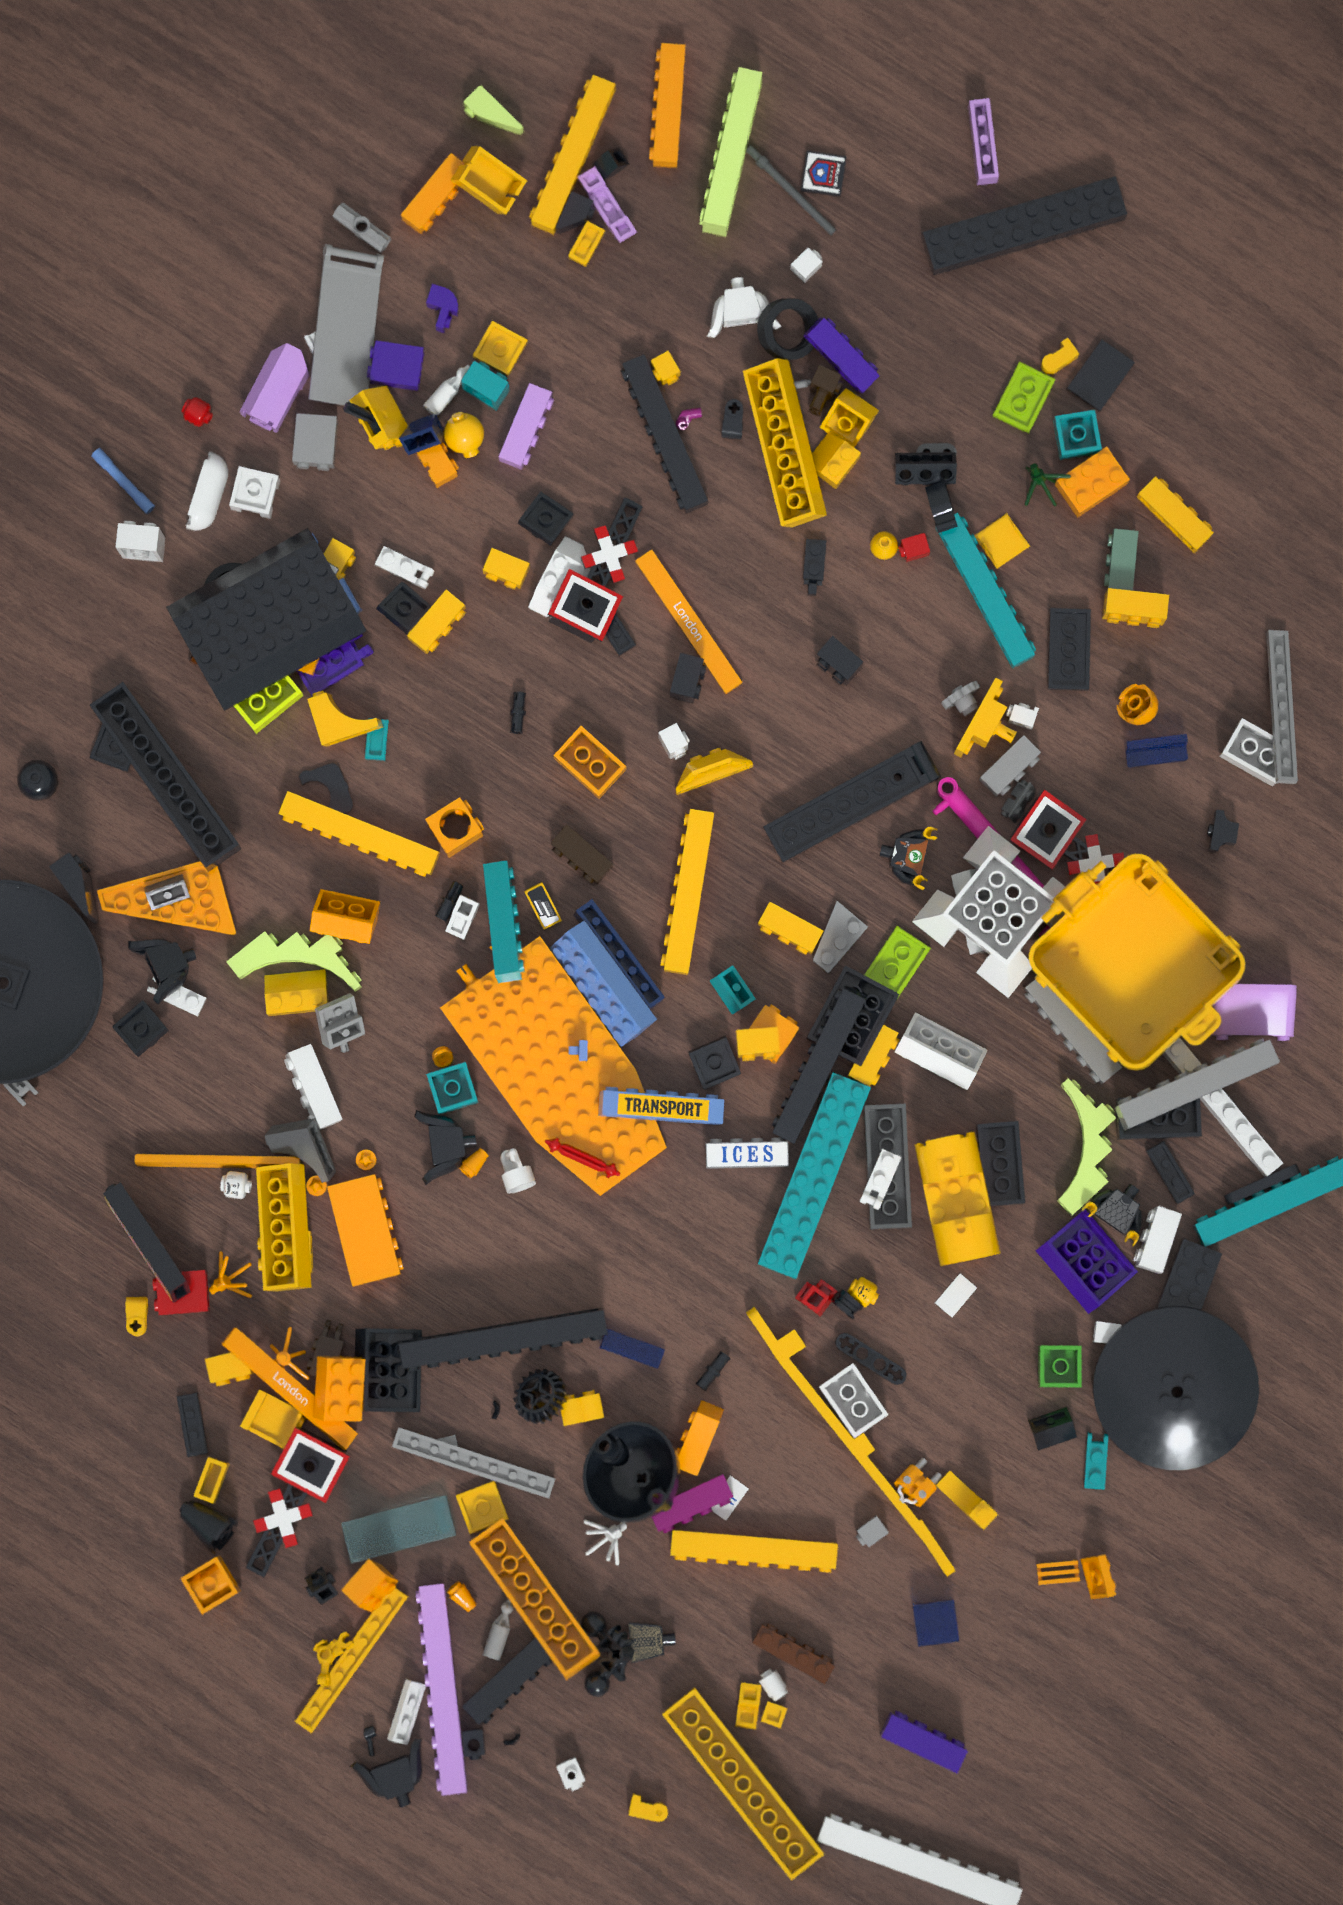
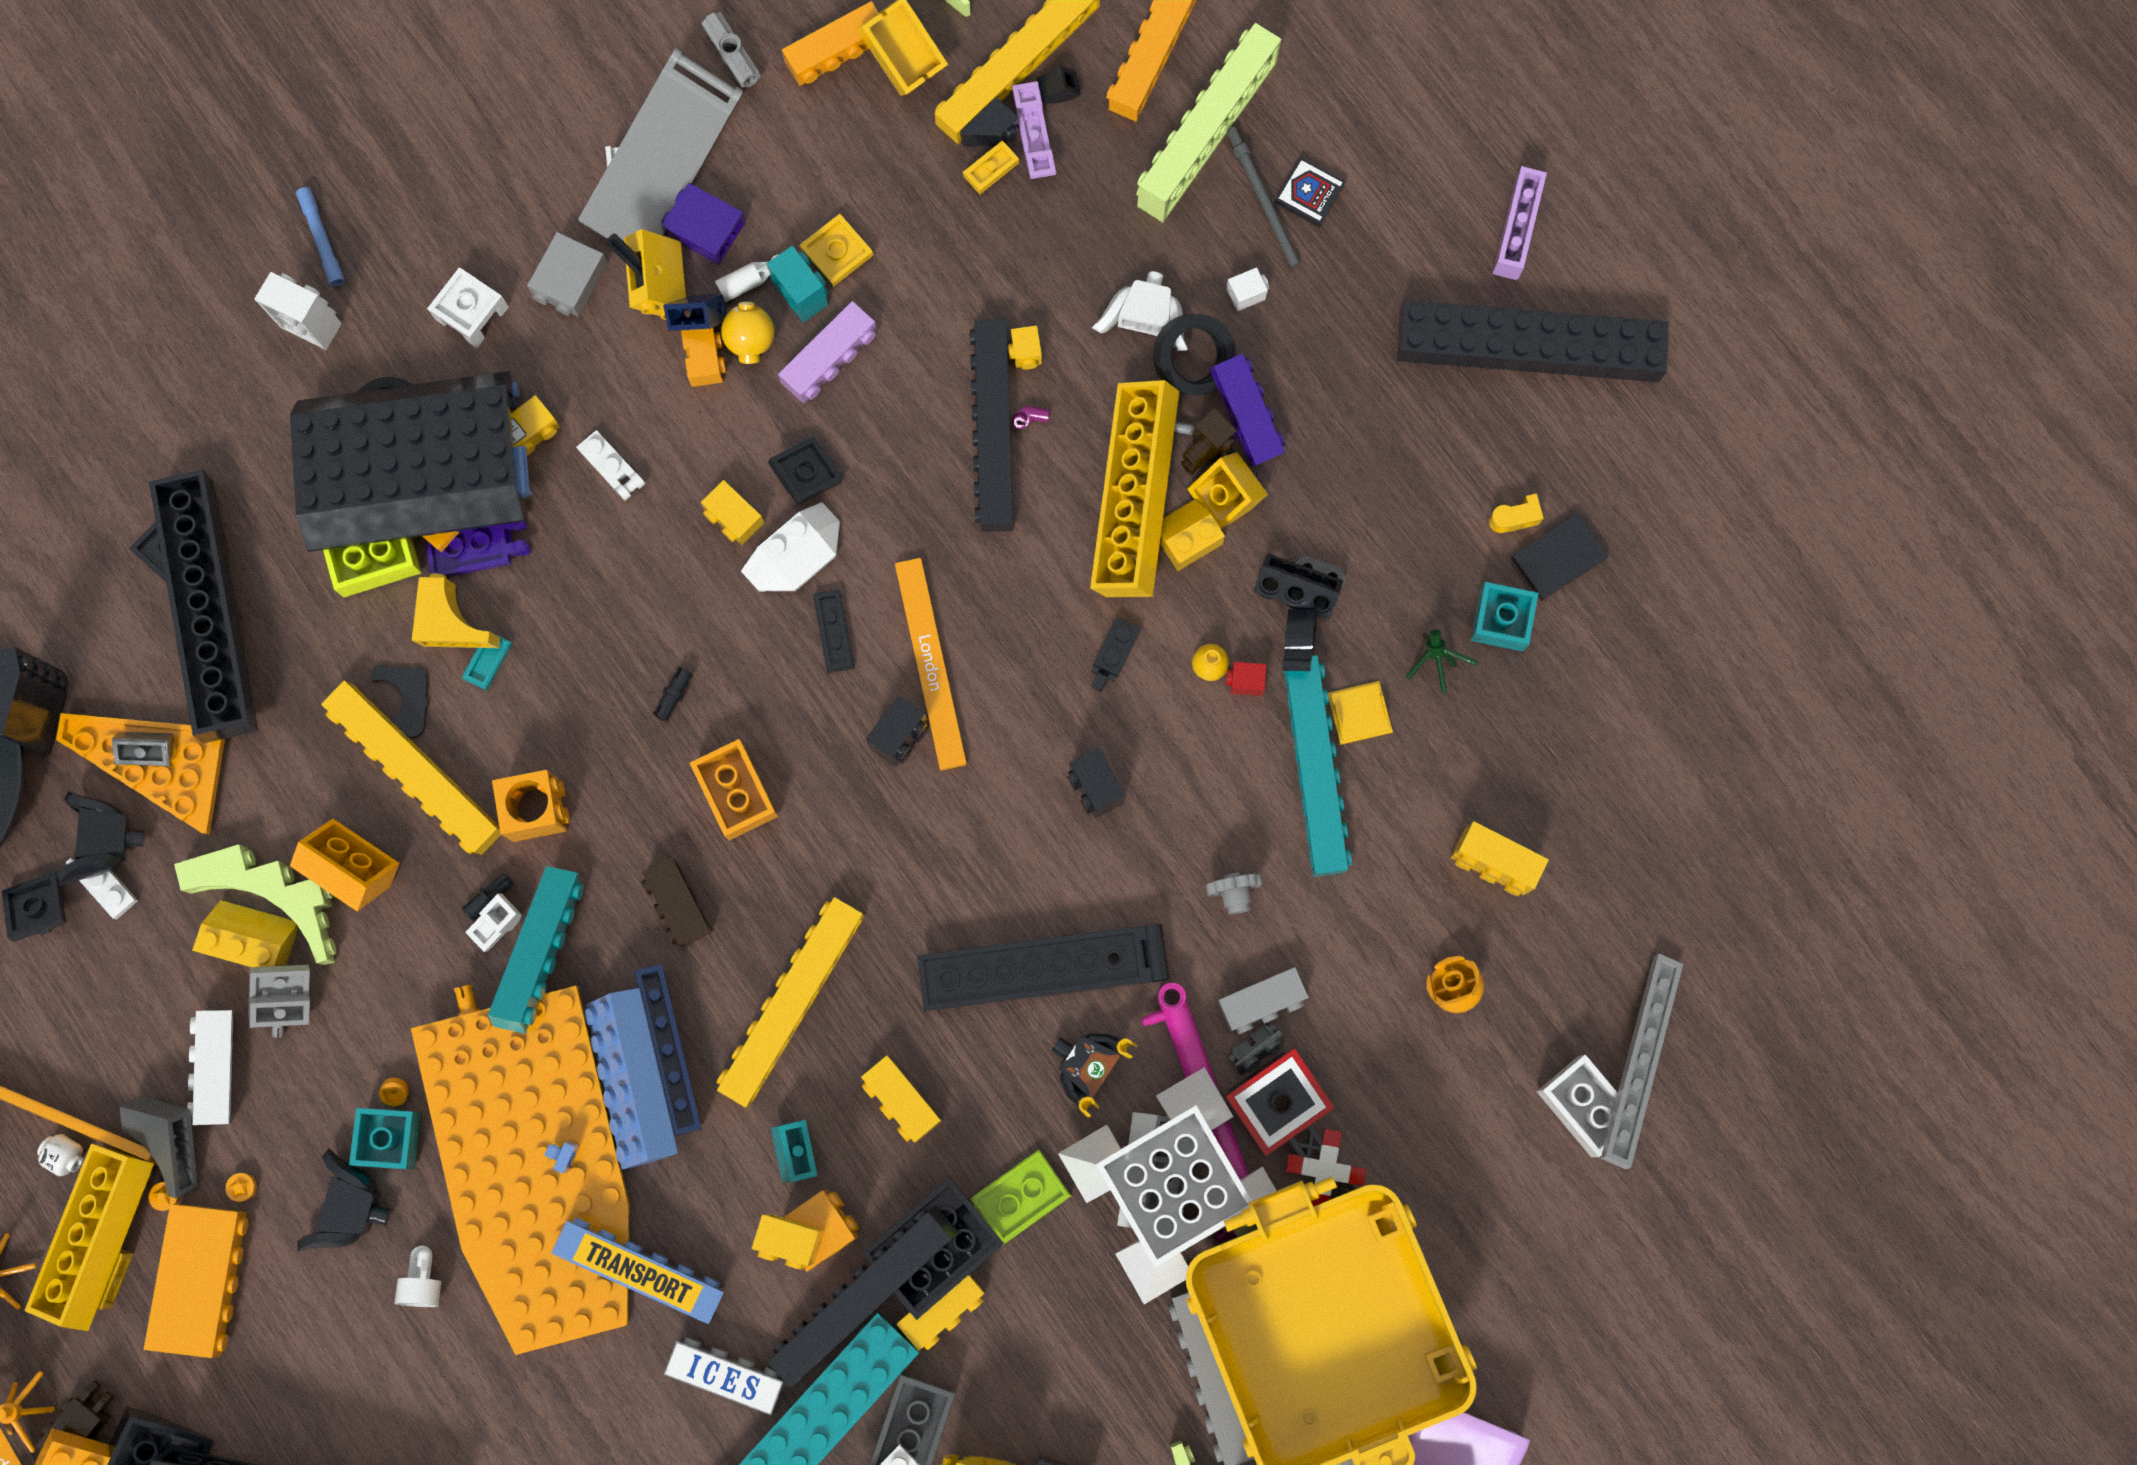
camera: 20 degrees right, 5 degrees down
(37, 780) = (54, 551): black cylinder -> none
(197, 412) = (442, 188): red head -> none
(208, 492) = (413, 287): white brick -> none
(276, 387) = (546, 193): lavender brick -> none
(403, 607) = (586, 512): black hinge -> none
(437, 622) = (620, 545): yellow brick -> none
(445, 302) = (792, 175): dark purple brick -> none
(473, 1163) = (373, 1246): light orange cone -> none
(542, 905) = (601, 947): slope -> none
(567, 606) = (811, 617): piece -> none
(582, 1157) = (510, 1297): red wheel -> none
(674, 741) = (848, 804): white brick -> none
(711, 768) = (881, 856): yellow wedge -> none
(714, 1062) = (730, 1237): black hinge -> none
(732, 423) = (1082, 443): black piece -> none
(839, 936) = (958, 1135): light grey wing -> none
(941, 1051) = (1031, 1338): white slope -> none
(986, 722) = (1253, 932): yellow brick -> none
(1022, 715) = (1302, 941): white brick -> none
(1024, 397) = (1453, 547): lime tile -> none
(1069, 649) = (1394, 880): black plate -> none
(1092, 482) = (1501, 682): light orange brick -> none
(1121, 559) = (1502, 792): sand green brick -> none
(1156, 750) = (1457, 1053): clear blue panel -> none
(1174, 514) = (1591, 762): yellow brick -> none
(1221, 832) = (1504, 1191): black brick -> none

